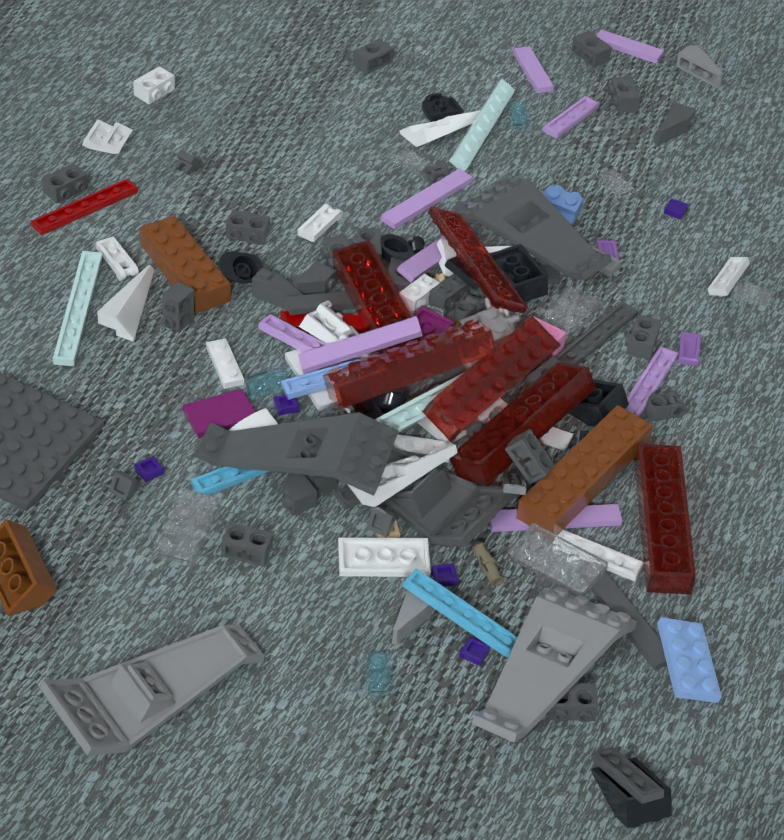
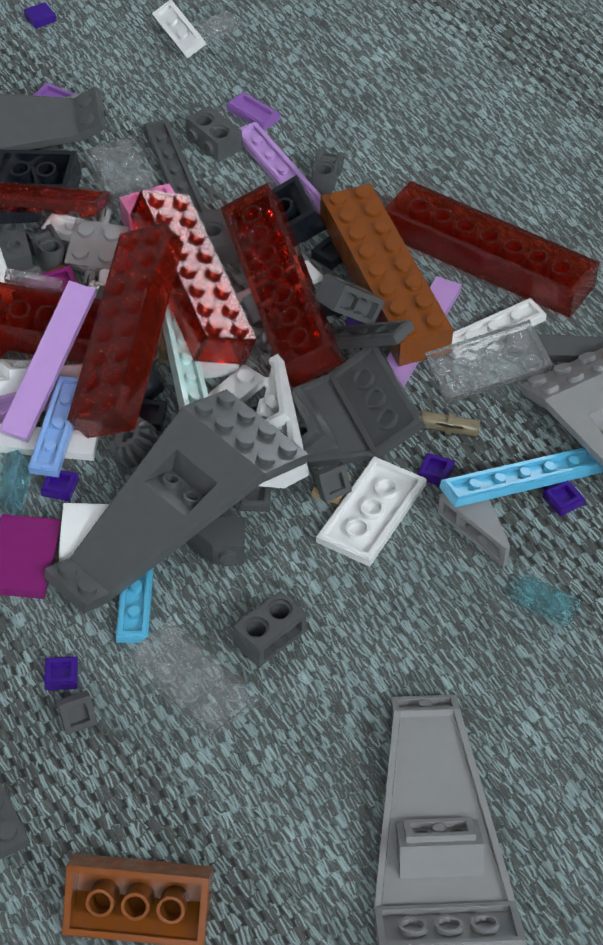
camera: 55 degrees left, 5 degrees up
(413, 308) = (33, 280): none -> clear tile

